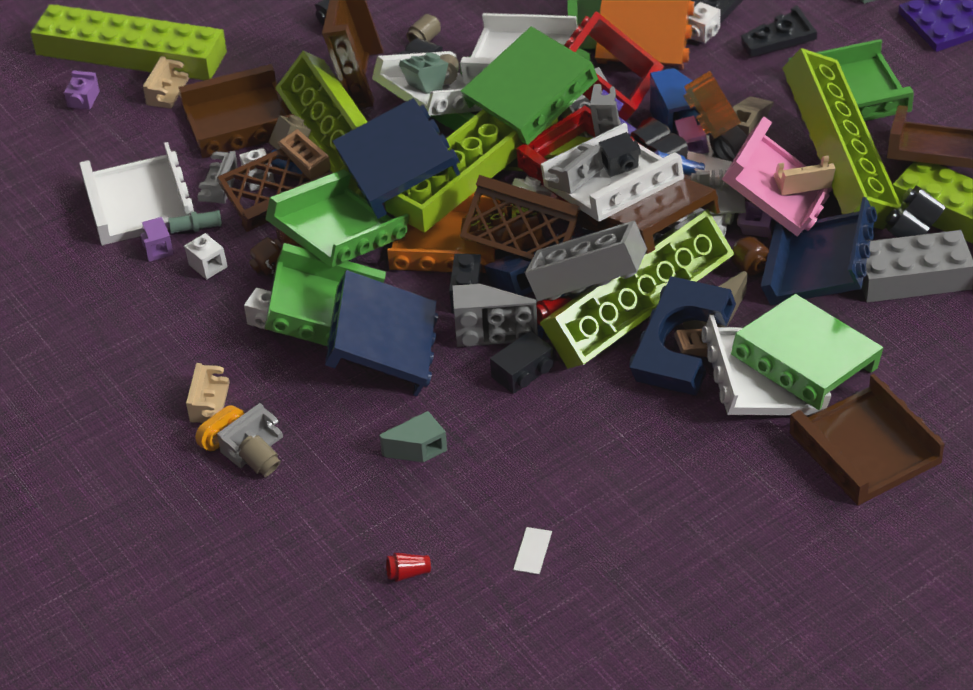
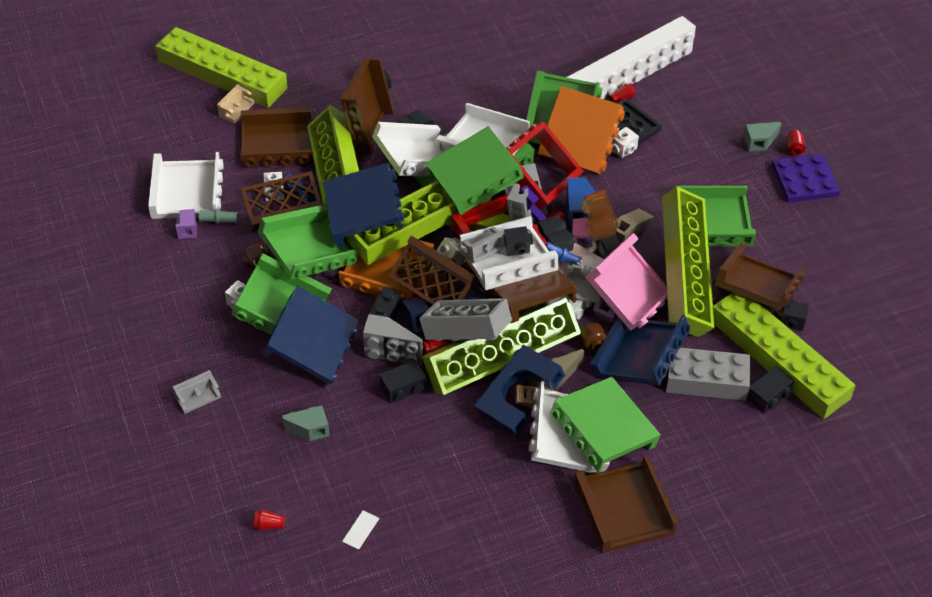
camera: 10 degrees right, 5 degrees up
(82, 90) = (177, 96): medium lavender brick -> none
(206, 256) = (215, 245): white brick -> none
(206, 393) = (179, 352): tan hinge -> none
(210, 189) = (248, 180): light grey hinge -> none
(215, 424) = (176, 378): light orange plate -> none
(259, 455) = (197, 409): dark tan brick -> none
(285, 127) = (303, 163): dark tan brick -> none
(312, 167) = (309, 195): medium nougat slope -> none
(425, 28) = (427, 102): dark tan brick -> none
(425, 72) = (409, 140): sand green slope -> none
(452, 70) = (427, 139): dark tan brick -> none
(782, 33) = (679, 163): black wing -> none
(804, 178) = (648, 287): tan hinge -> none
(915, 214) = (719, 335): black brick -> none

